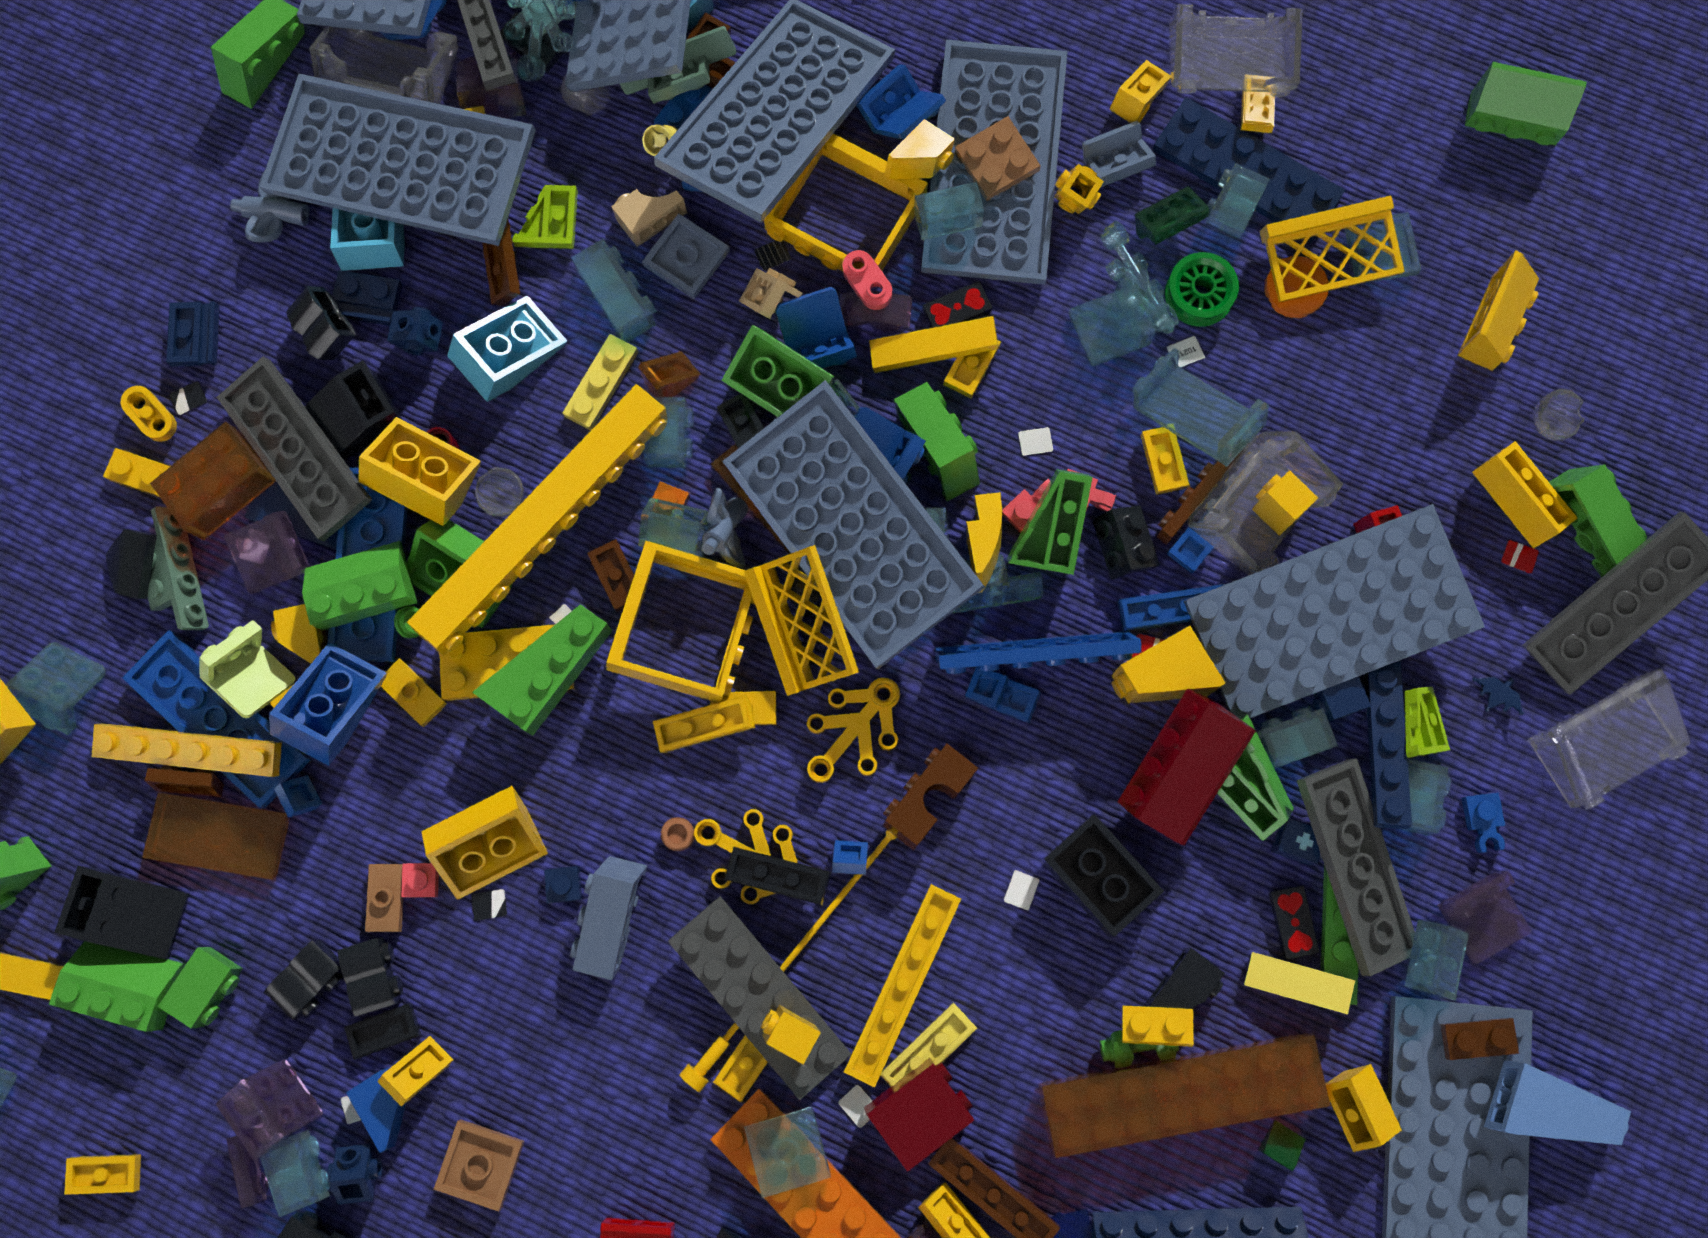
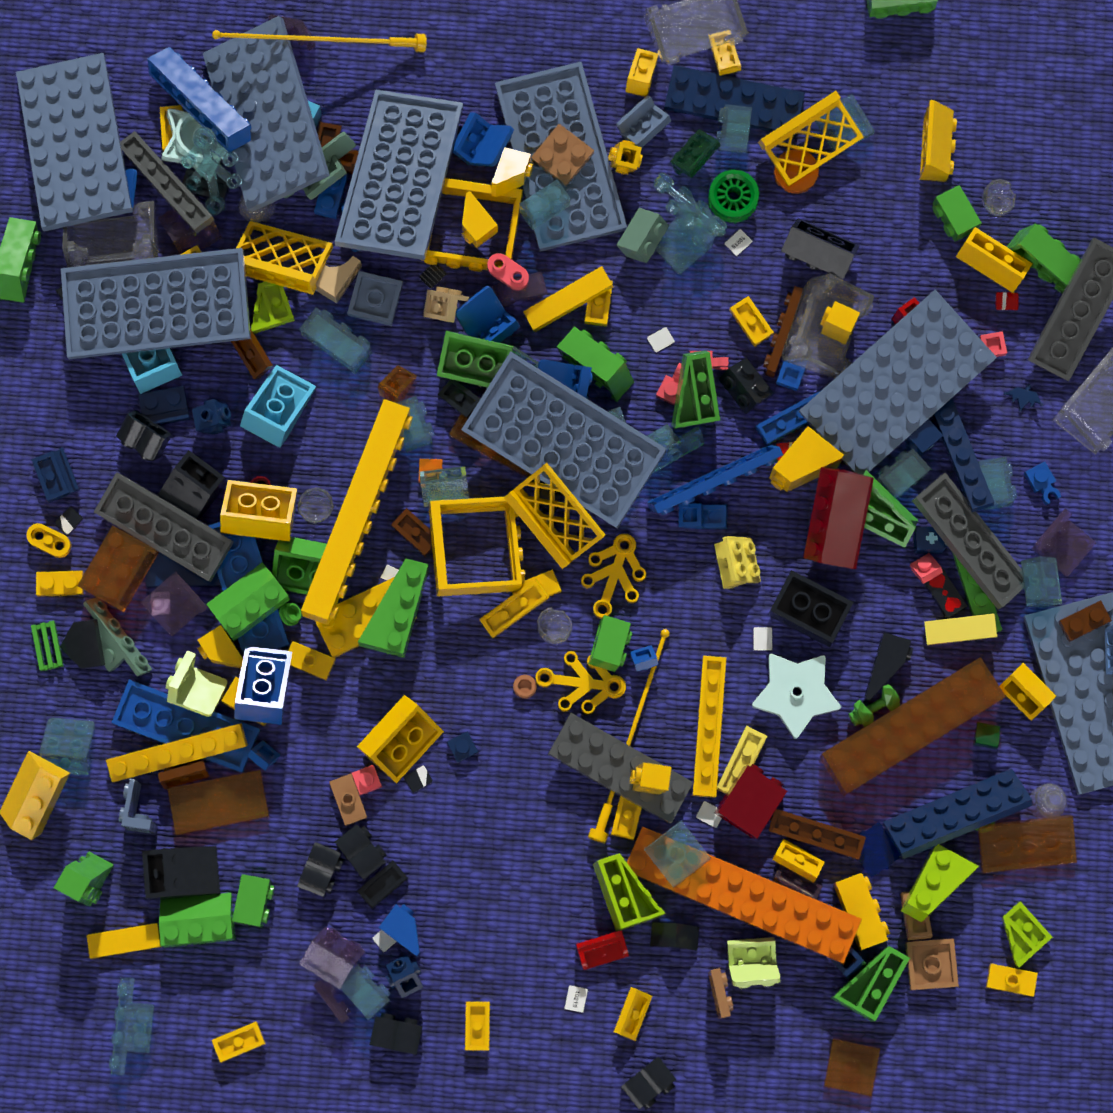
camera: 25 degrees left, 0 degrees up
(84, 547) = (42, 626): none -> bright green tile
(88, 808) = (128, 815): none -> sand blue bracket
(268, 213) = (70, 370): sand blue plant -> none
(415, 1071) = (417, 897): yellow plate -> none
(479, 1165) = (481, 942): medium nougat plate -> none
(564, 174) = (278, 274): none -> yellow fence
(600, 382) = (350, 406): light yellow plate -> none
(606, 917) = (501, 755): sand blue wedge -> none
(656, 137) = (324, 227): light yellow wheel -> none
(696, 1180) = (624, 894): none -> lime wedge
(721, 534) = (477, 480): sand blue plant -> none
(746, 768) = (554, 626): none -> clear hair
(778, 875) = (602, 687): black tile -> none
(811, 820) = (610, 643): none -> bright green brick
(850, 201) = (476, 222): none -> yellow slope
(945, 772) = (674, 618): reddish brown arch -> none
(958, 306) = (574, 267): black tile -> none
(984, 535) = (651, 414): yellow slope -> none
(1013, 978) = (792, 709): none -> light aqua plate
(1026, 773) = (737, 561): none -> light yellow bracket
(1062, 296) = (642, 235): none -> sand green brick
(1157, 1026) = (880, 688): yellow plate -> none
(1197, 410) = (760, 280): clear light blue panel -> none
(1281, 879) = (926, 568): none -> coral plate
(1292, 395) = (819, 248): none -> black brick
(1423, 723) = (981, 434): lime wing -> none
(1488, 606) = (995, 343): none -> coral plate
(1493, 415) = (956, 213): none -> bright green brick

